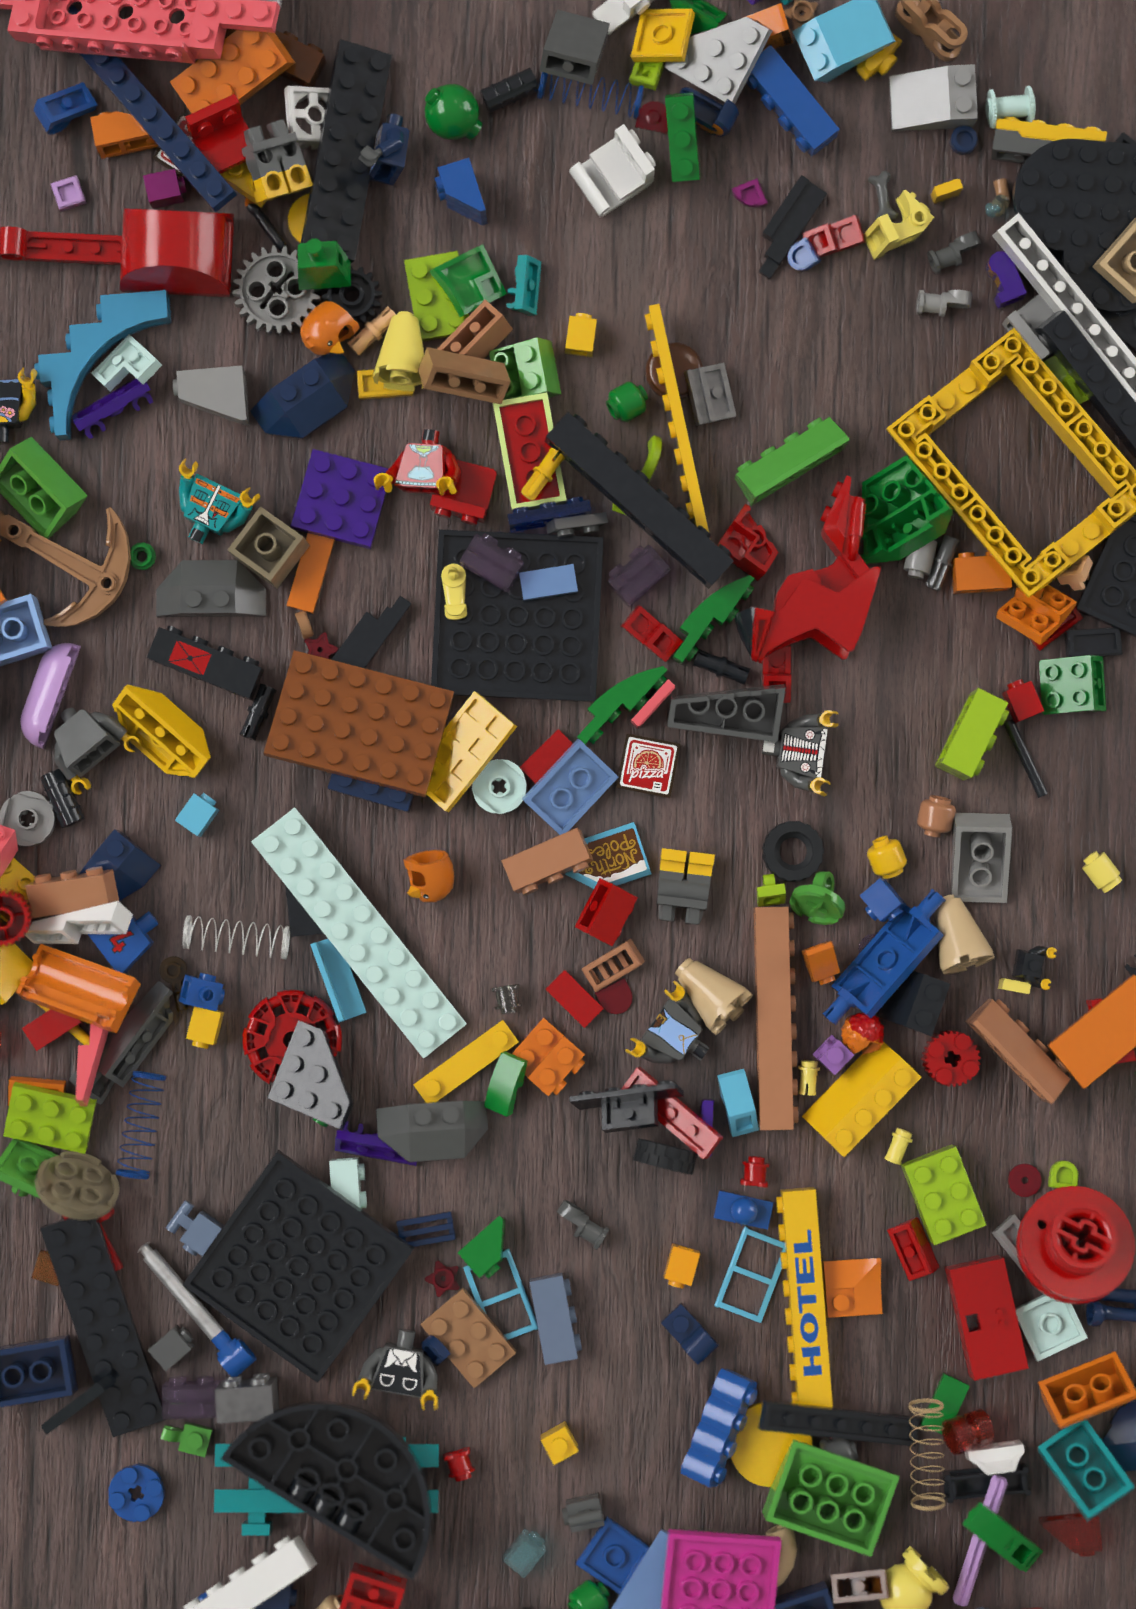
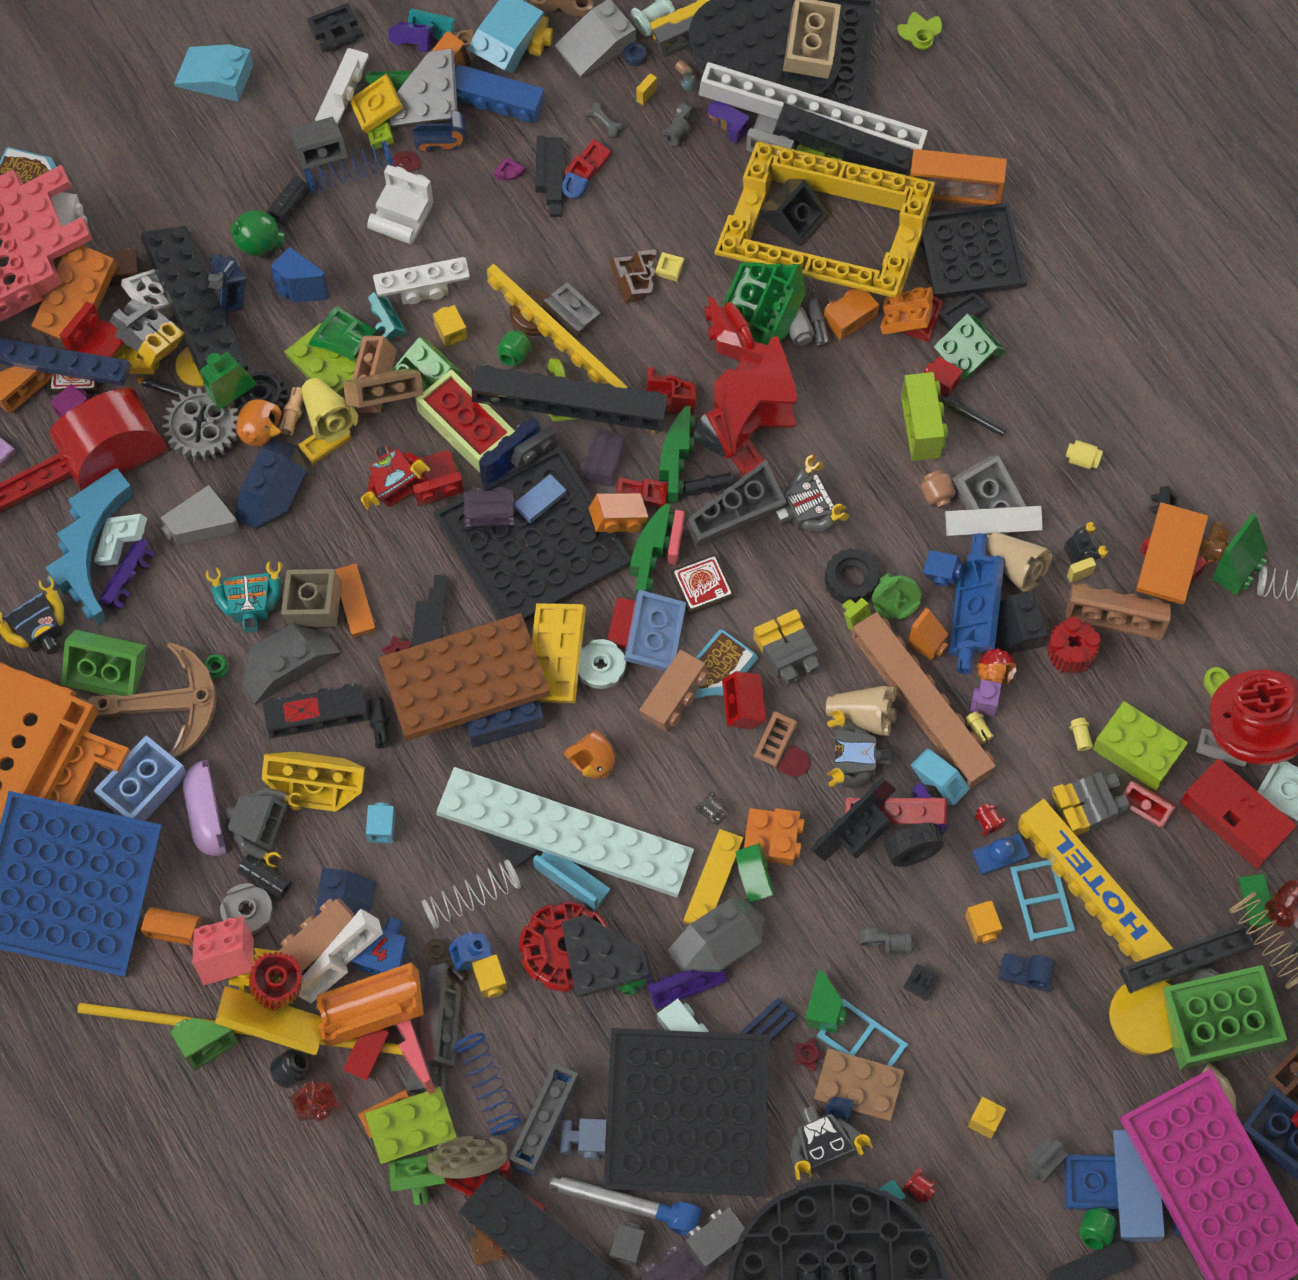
camera: 30 degrees left, 20 degrees down
(168, 1191) = (544, 1119): none -> dark grey piece
(304, 625) = (374, 639): medium nougat tile -> none
(340, 499) = (344, 536): dark purple plate -> none
(454, 587) = (470, 541): light yellow piece -> none
(525, 1552) = (1020, 1223): clear light blue brick -> none
(542, 474) = (486, 421): yellow axle -> none
(555, 1318) = (915, 1024): sand blue brick -> none
(574, 998) = (763, 781): red tile -> none
(582, 270) = (422, 281): none -> white bracket
(589, 1280) = (921, 982): none -> black tile
(612, 646) = (618, 512): none -> orange brick
(682, 137) = (435, 154): green brick -> none
(719, 1425) = (1100, 1024): blue brick -> none
(790, 460) = (661, 316): bright green slope -> none
(798, 394) = (634, 274): none -> reddish brown slope
(839, 406) = (669, 266): none -> light yellow tile
(852, 1287) = (1125, 856): orange plate -> none
(861, 1098) = (1028, 716): yellow slope -> none
(866, 1217) = (1089, 802): none -> dark grey hips
(885, 235) = (632, 122): light yellow tile -> none
(887, 857) = (923, 537): yellow head -> none
(938, 302) = (702, 151): light grey connector -> none
(965, 884) = (993, 520): none -> white tile
(1002, 426) = (795, 210): none -> black slope
(1015, 1180) = (1191, 710): dark red wheel -> none
(1077, 574) = (918, 272): light nougat tile -> none

